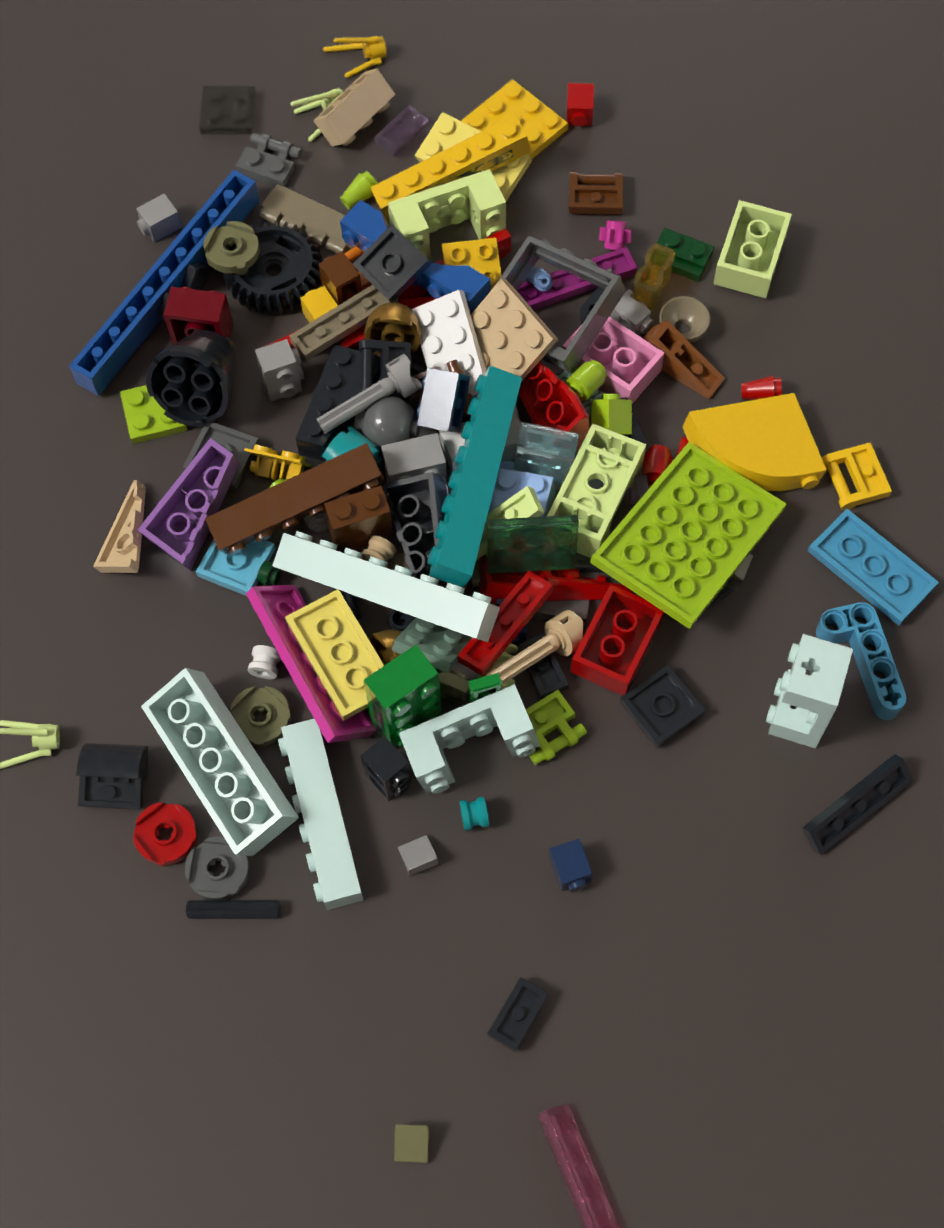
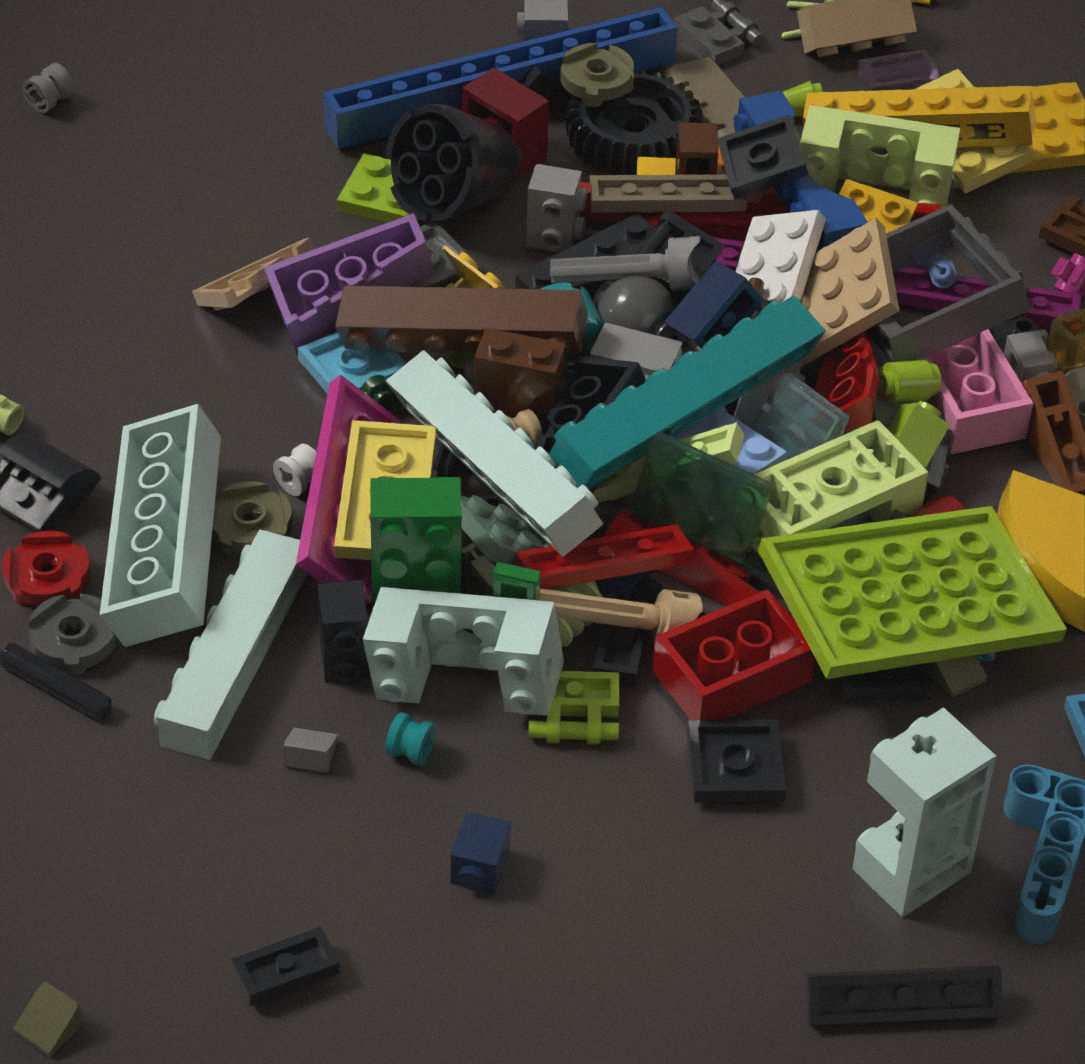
camera: 30 degrees right, 20 degrees down
(394, 323) = (723, 218): pearl gold cylinder -> none

